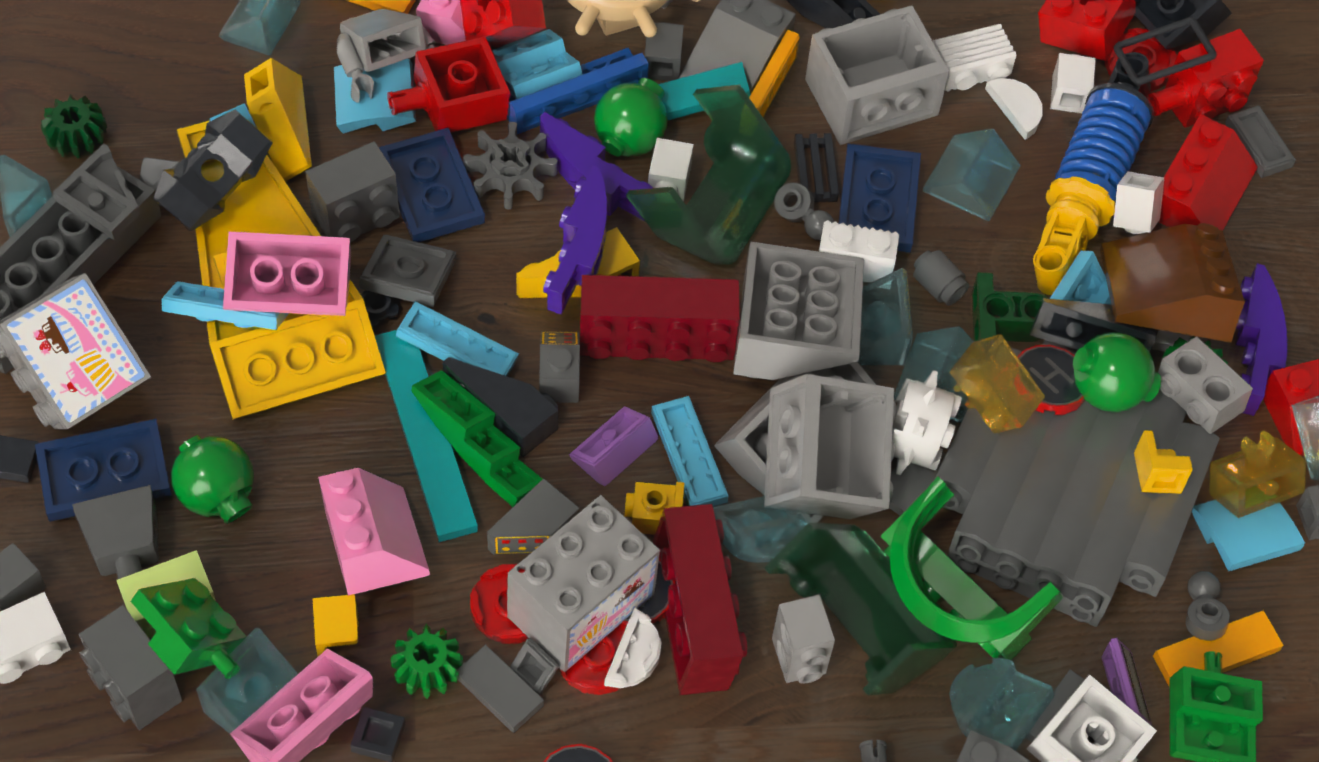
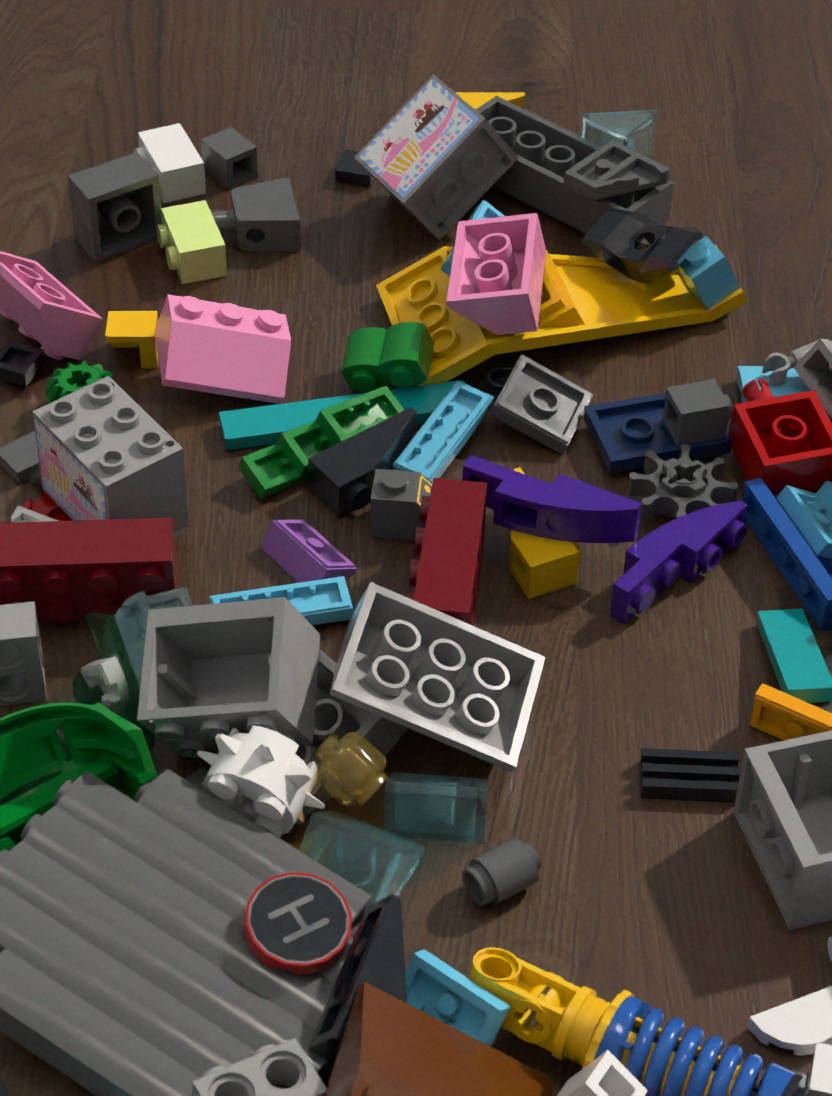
camera: 100 degrees right, 15 degrees down
(74, 126) = (727, 193): dark green gear -> none
(101, 465) = (335, 211): dark blue plate -> none
(189, 627) = (132, 217): green plate -> none
(213, 477) = (307, 264): green brick -> none
(259, 678) = (92, 274): clear light blue slope -> none
(279, 112) = (751, 313): yellow slope -> none
(353, 193) = (628, 349): dark grey brick -> none
(363, 391) = (387, 356): none -> green brick
(434, 143) = (696, 412): none -> dark grey brick
(531, 521) = (219, 479): dark grey slope -> none
(631, 118) = (745, 584): green brick -> none
(648, 503) = (217, 562): yellow brick -> none
(671, 165) = (675, 623): white brick -> none
(736, 190) = (659, 697): clear green windscreen -> none
(802, 210) = (623, 739): dark grey plate -> none
(831, 551) = (110, 678): none -> white tile
(874, 246) = (540, 785): white brick -> none
(881, 191) = (635, 827): dark blue plate -> none
(889, 363) = (350, 768): none -> clear yellow head
(974, 173) = (674, 947): clear light blue slope -> none
(996, 384) = (267, 819): clear yellow brick -> none
(1011, 308) = (439, 917): dark green tile -> none
(1115, 372) = (283, 980): green brick -> none
(1160, 468) = (135, 1008): yellow panel -> none

